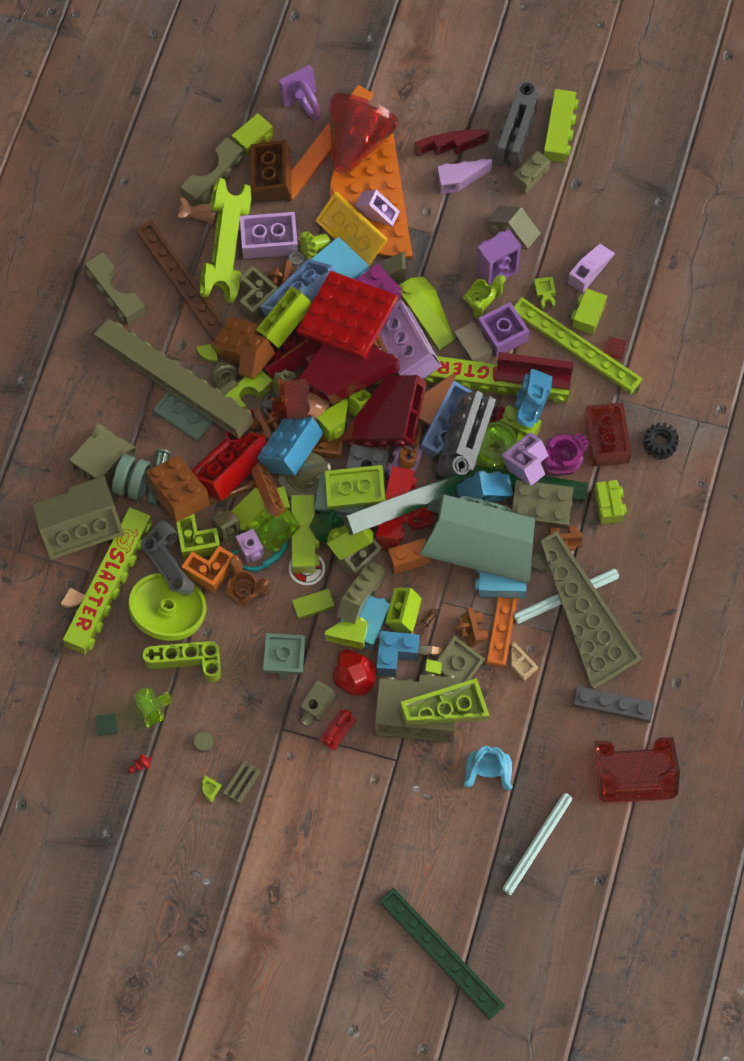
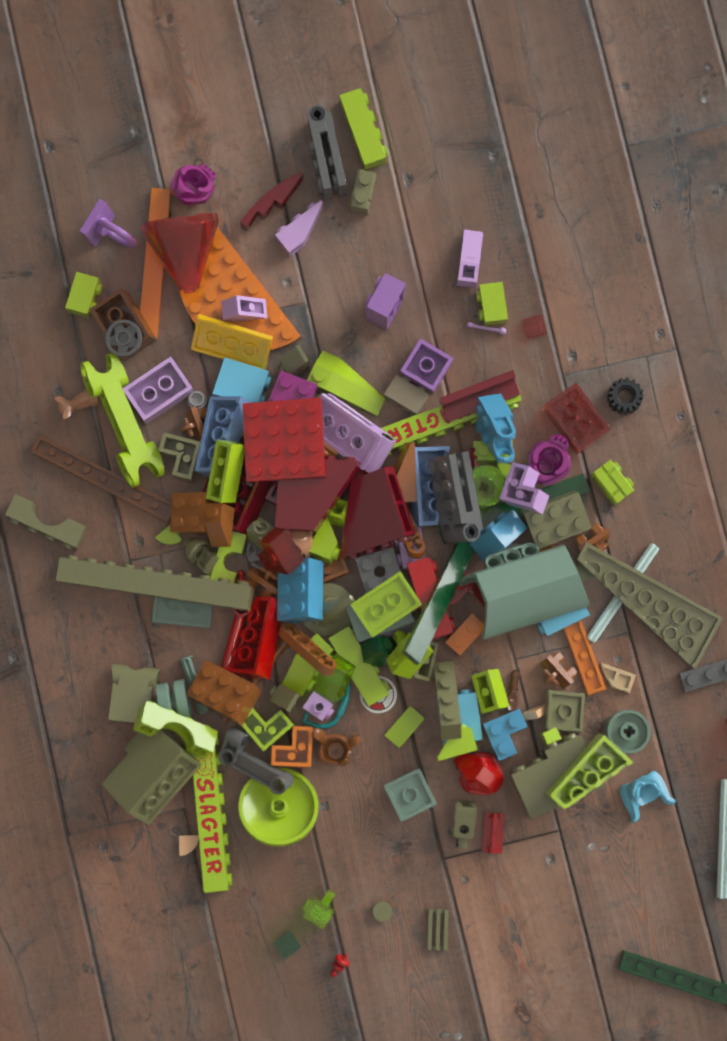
camera: 30 degrees left, 15 degrees up
(133, 507) = (197, 737): none -> lime arch
(182, 660) = (319, 847): lime beam -> none
(198, 188) = (64, 378): olive arch -> none
(210, 788) = (413, 950): lime tile -> none
(264, 177) = (124, 338): none -> dark grey wheel
(311, 245) = (203, 378): lime gear -> none
(398, 102) = (193, 184): none -> magenta helmet
(485, 294) = (390, 339): lime hair -> none
(512, 703) = (638, 728): none -> sand green wheel
(516, 221) = (378, 256): olive brick -> none
(546, 290) = (440, 303): lime plate -> none
(561, 320) = (502, 331): none -> lavender hinge
(577, 346) = (498, 343): lime tile -> none

